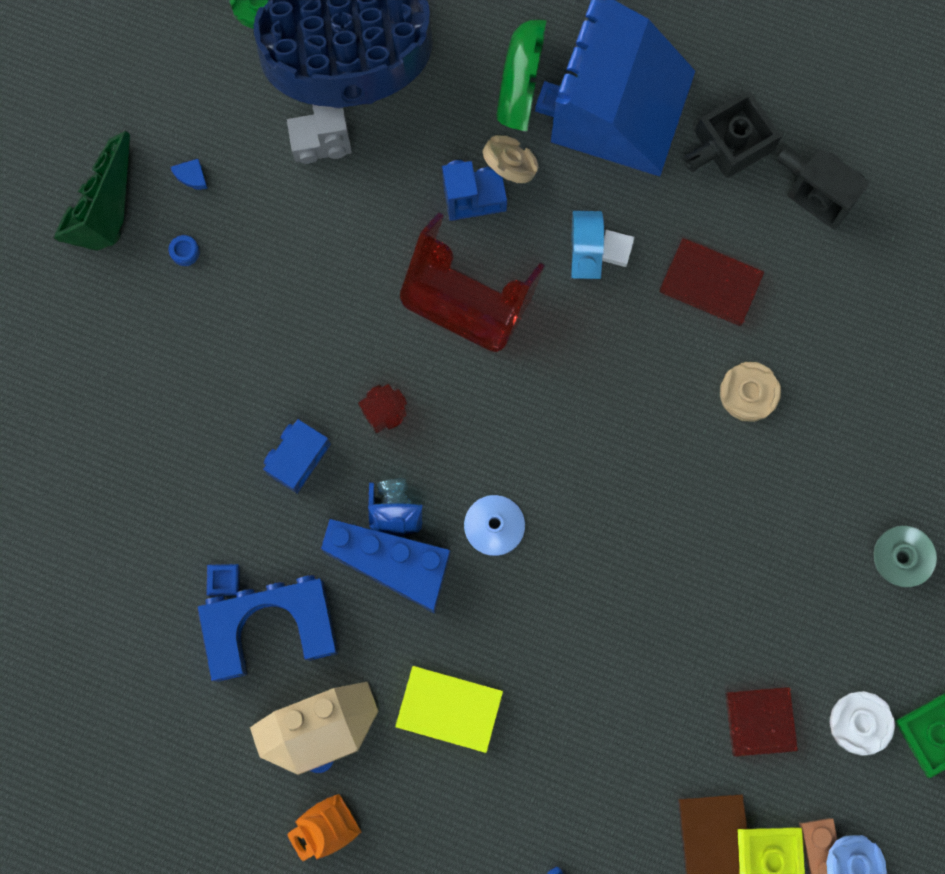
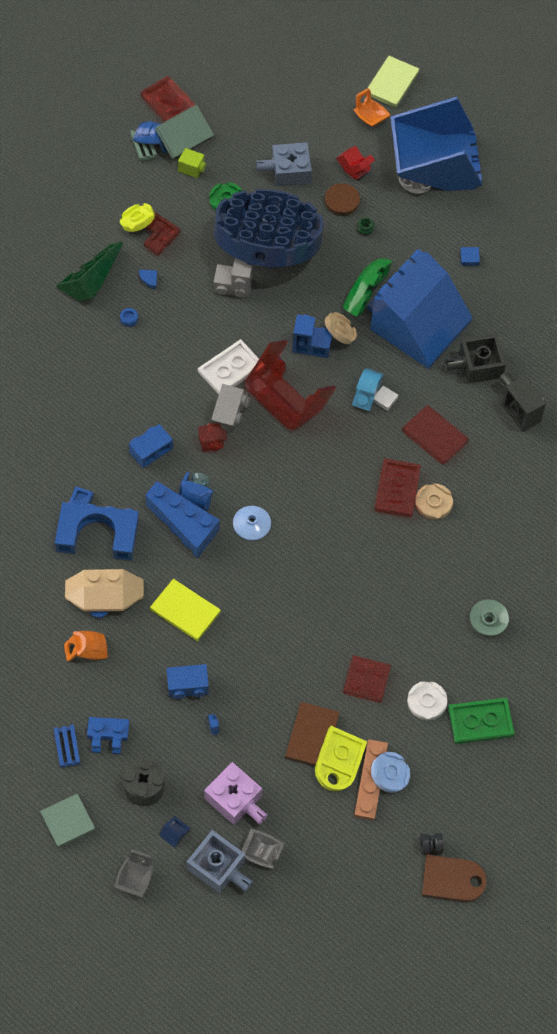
camera: 15 degrees right, 15 degrees down
(135, 82) = (137, 217): none -> neon yellow tile
(184, 90) = (163, 234): none -> clear red plate
(367, 280) = (229, 366): none -> white tile
(393, 350) = (229, 404): none -> light grey brick
(499, 835) = (187, 681): none -> blue brick
(690, 390) = (397, 487): none -> clear red plate

